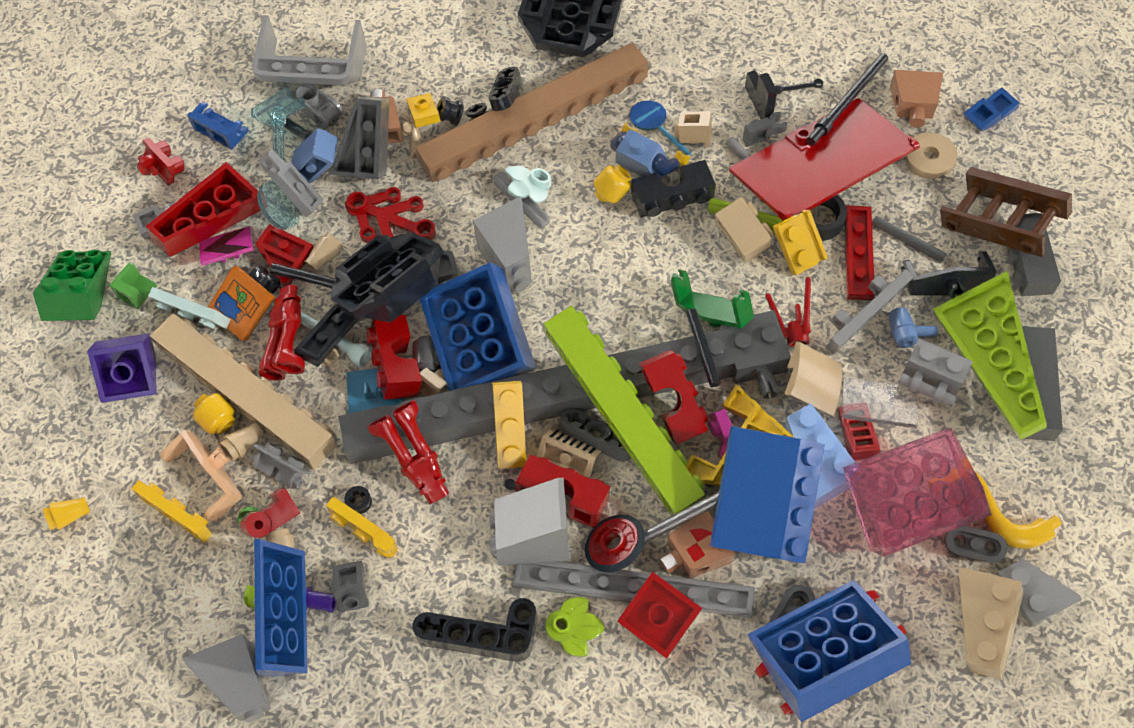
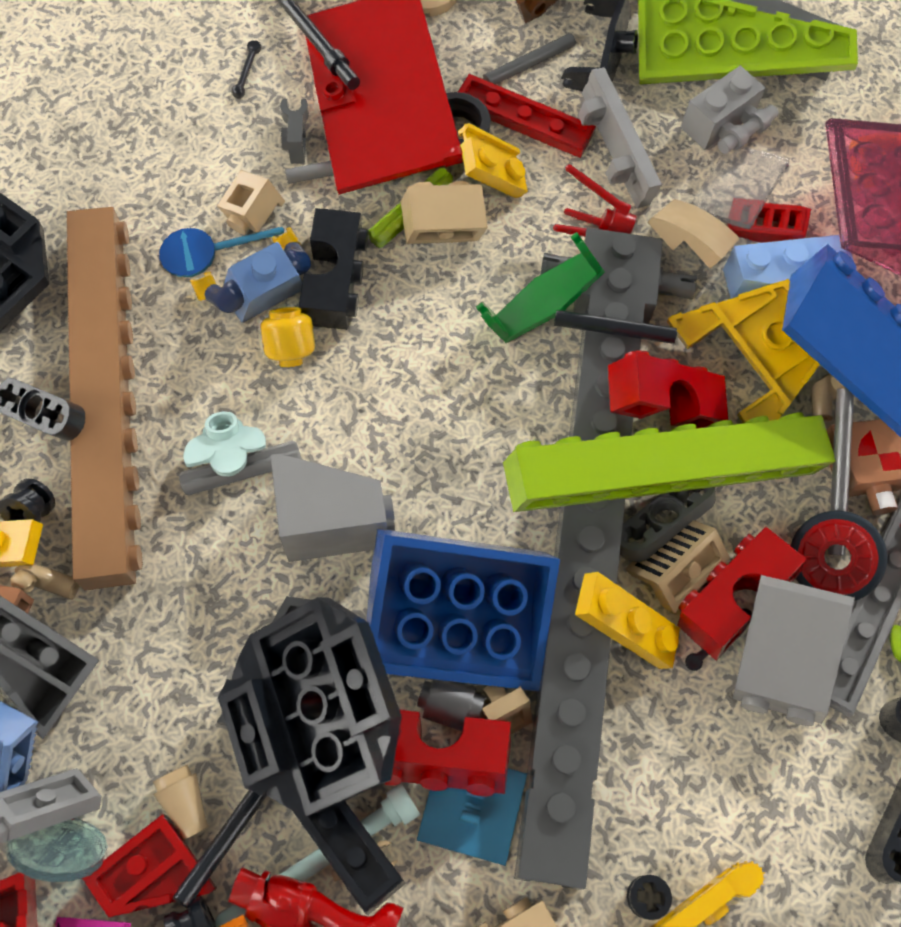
camera: 75 degrees left, 5 degrees up
(387, 214) = (163, 675): red plant -> none
(421, 468) = (645, 777): red piece -> none
(476, 110) = (53, 468): black bush -> none
(720, 427) = (723, 360): dark pink plate -> none
(761, 92) = (253, 108): black tile -> none
(904, 329) = (655, 116): medium blue piece -> none

